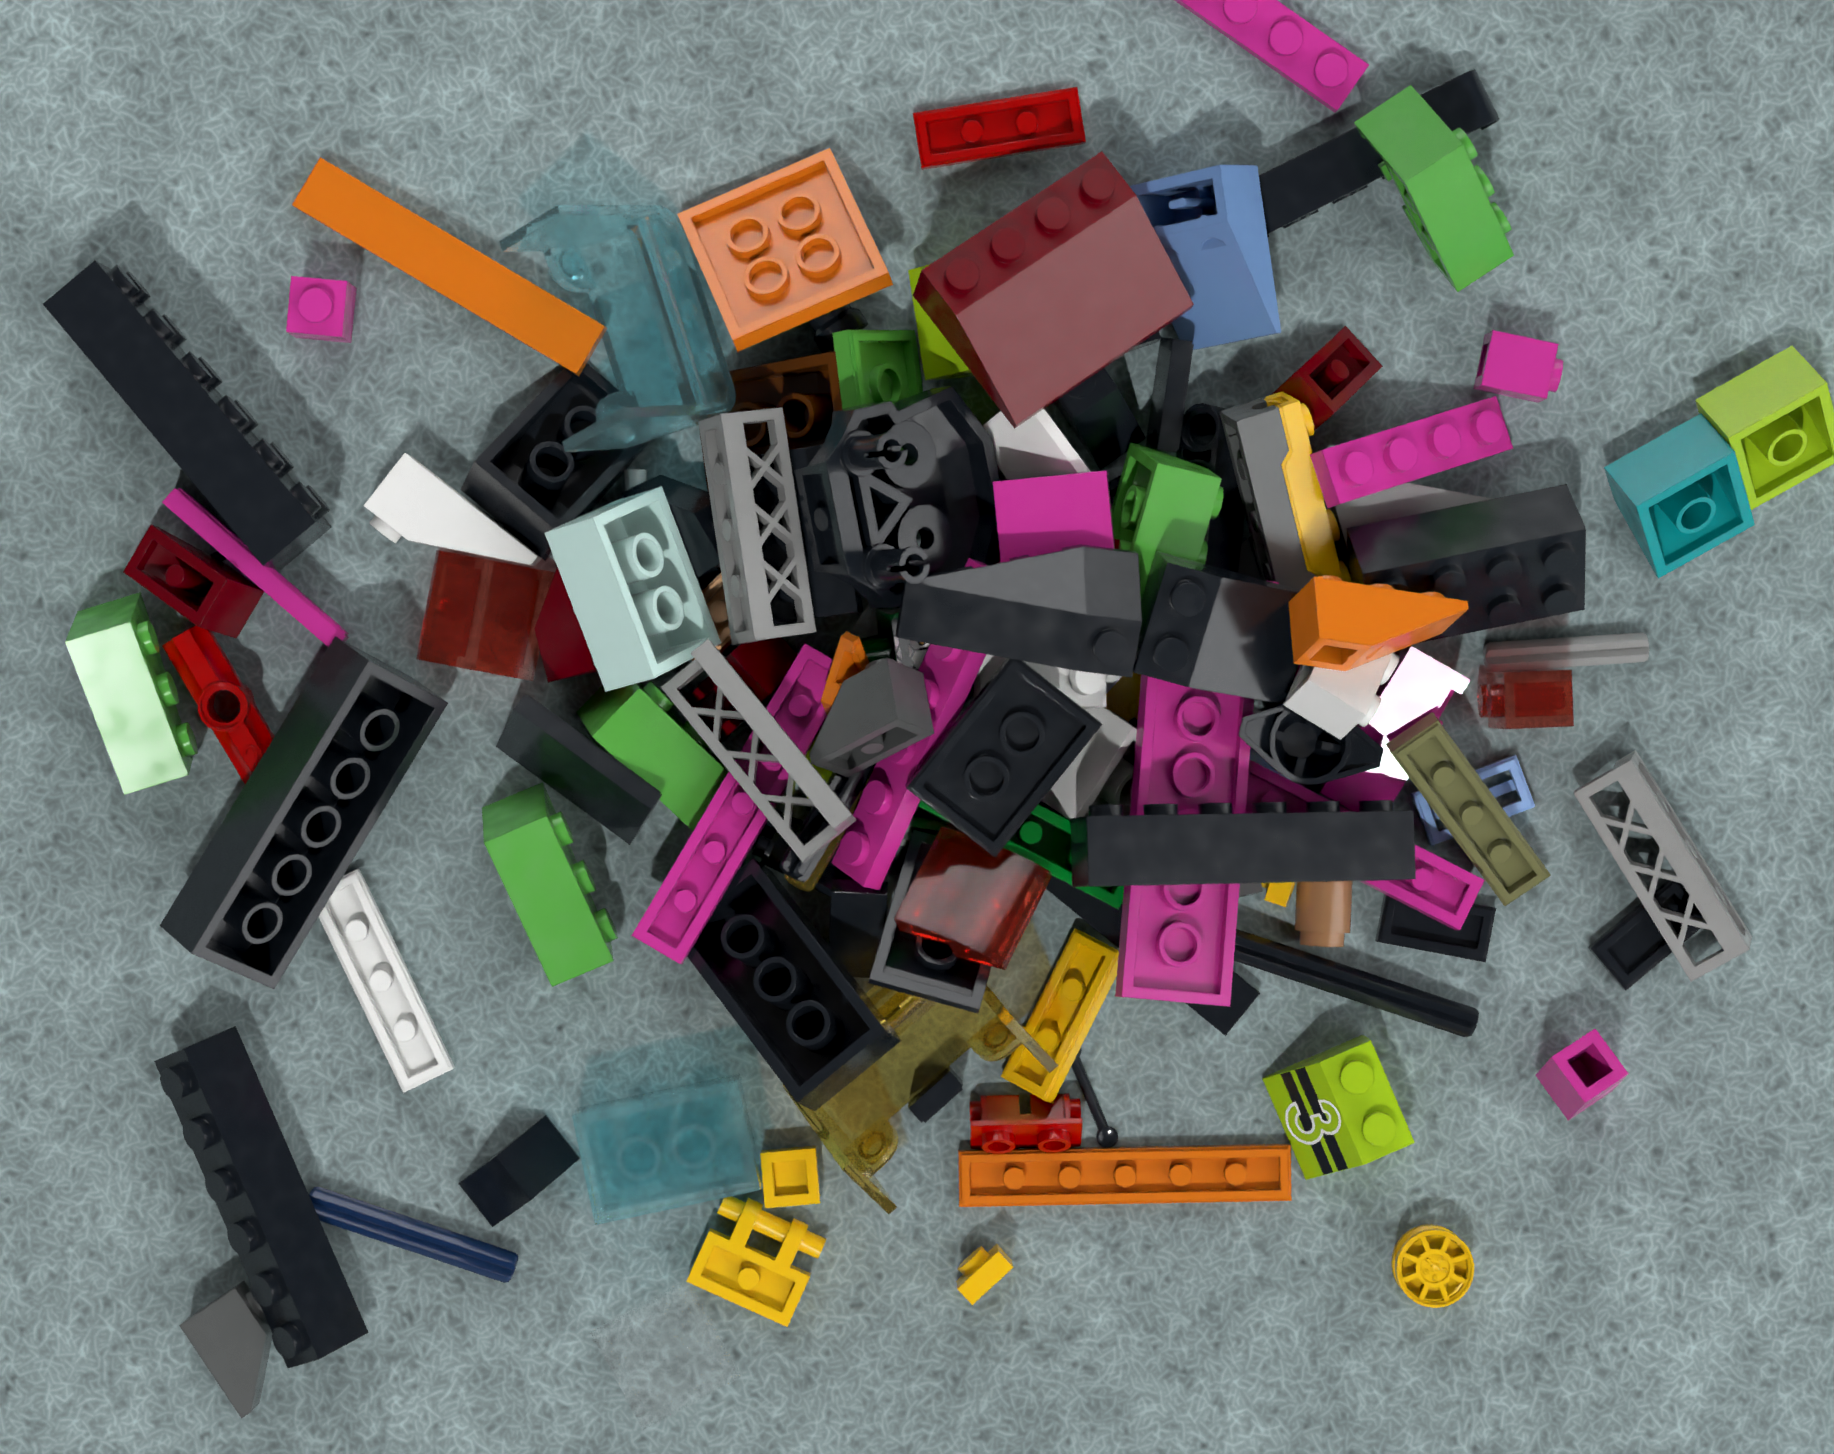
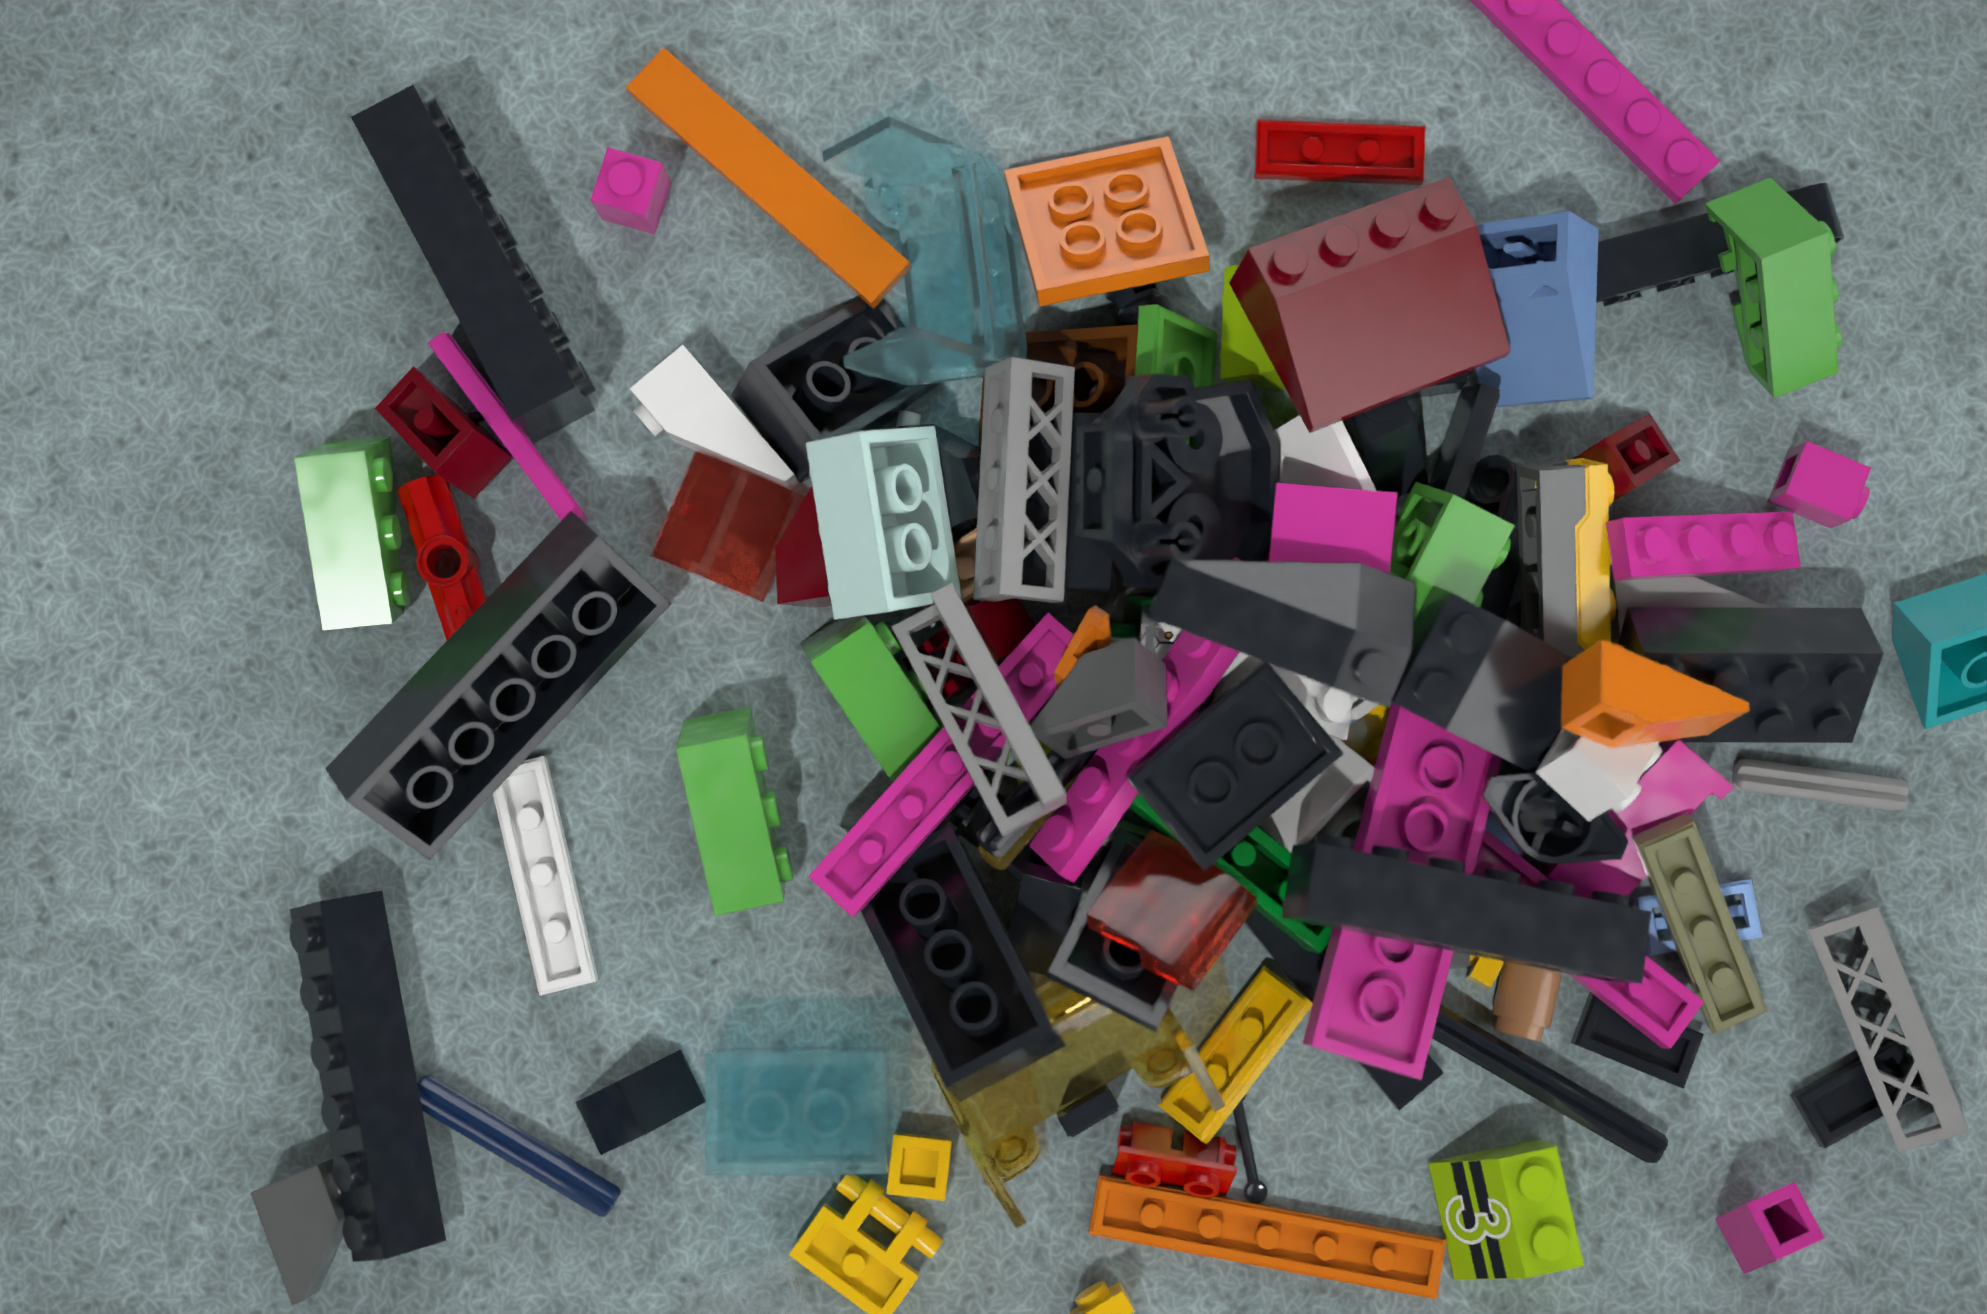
camera: 10 degrees right, 5 degrees down
(578, 769) = (789, 696): black tile -> none
(1527, 699) = (1781, 822): clear red brick -> none

